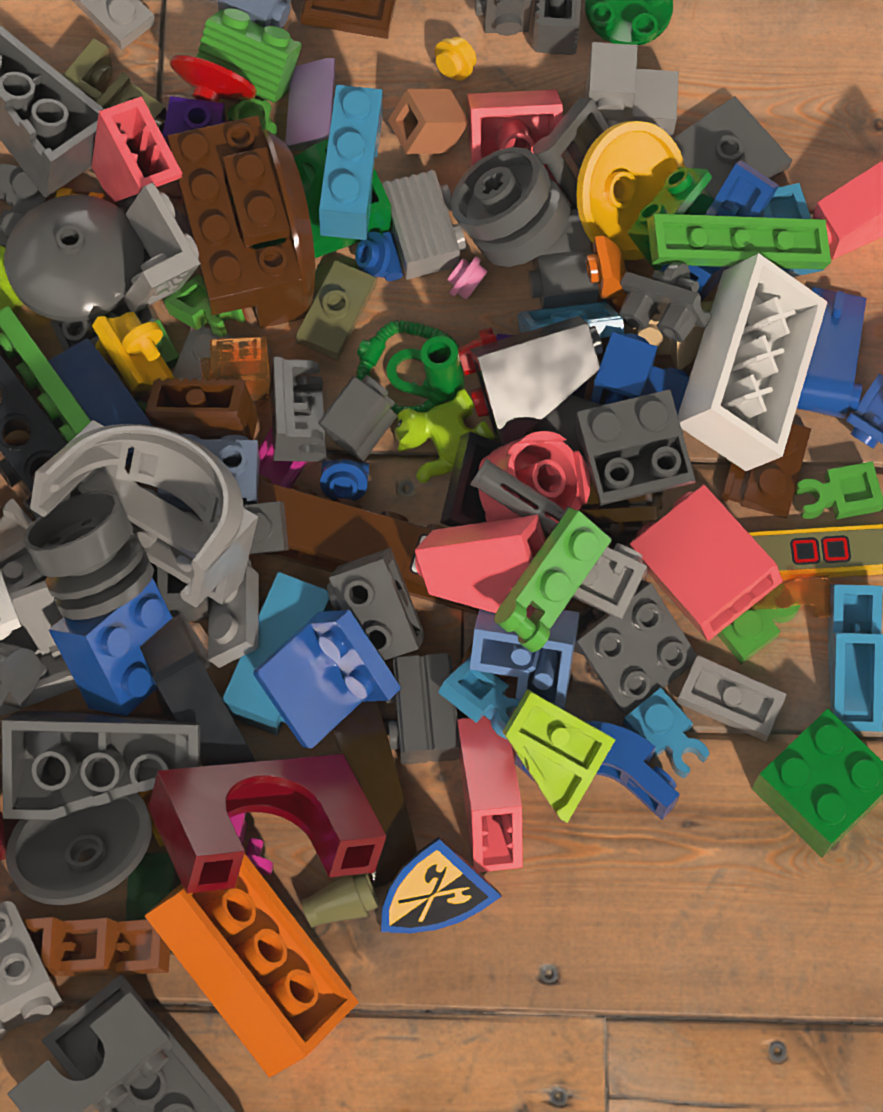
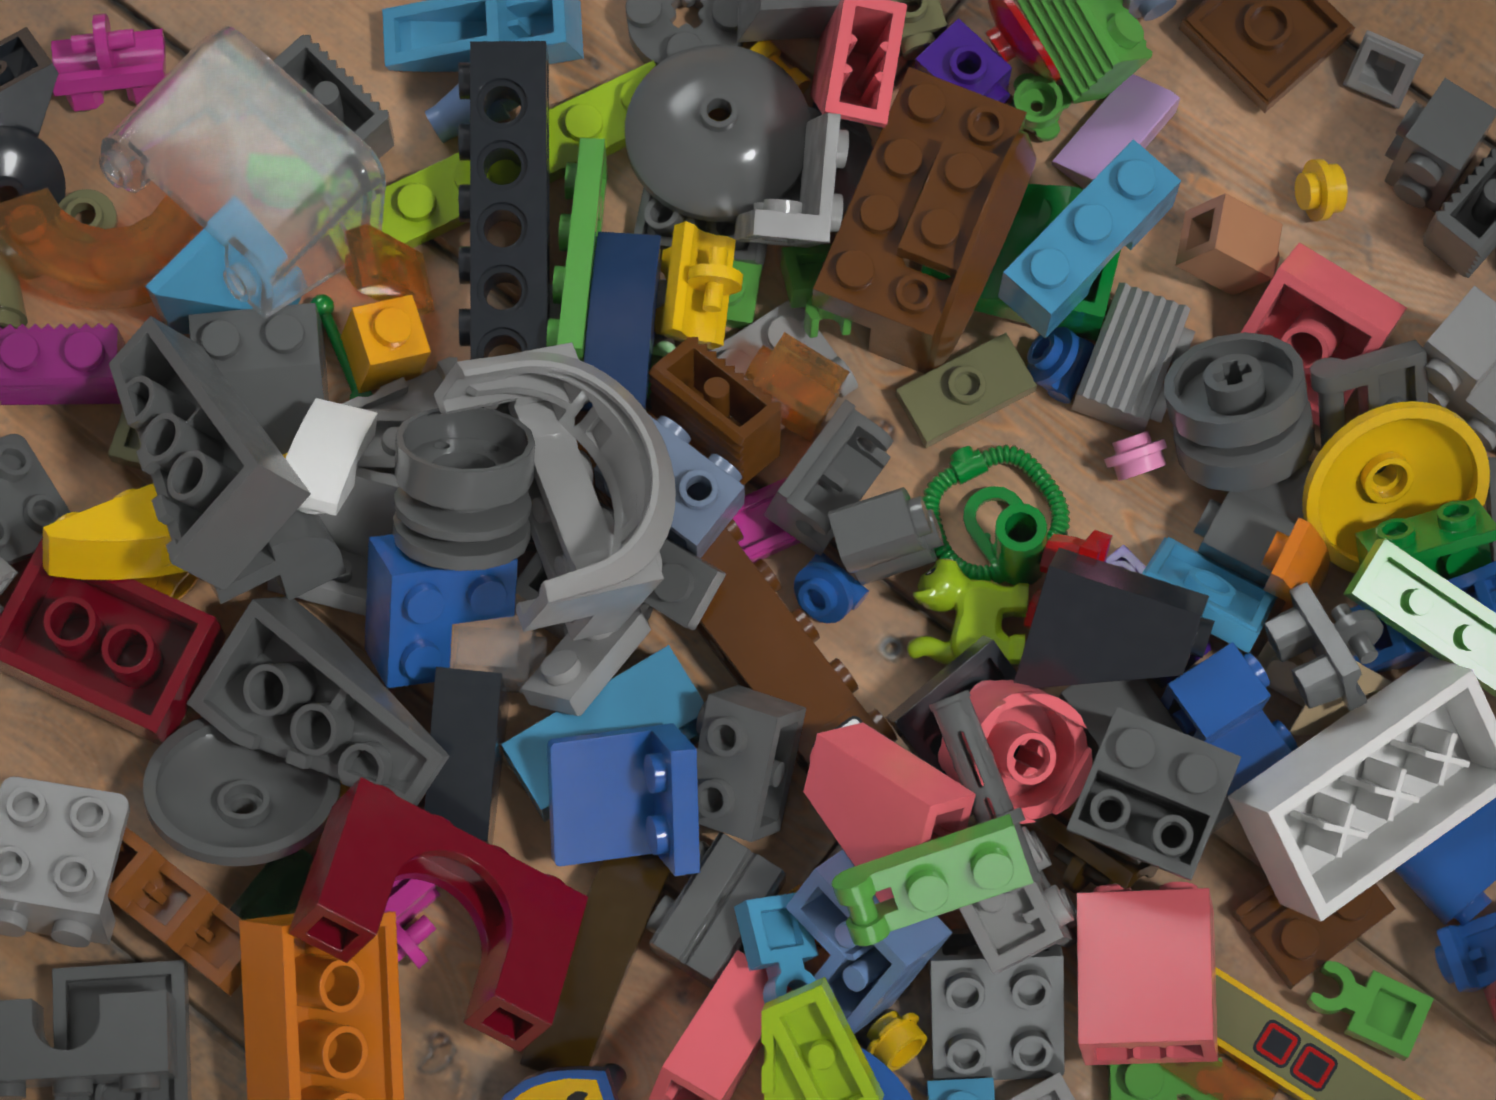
camera: 40 degrees right, 5 degrees up
(341, 900) = (469, 1055): olive cone -> none
(588, 704) = (896, 1039): none -> yellow plate

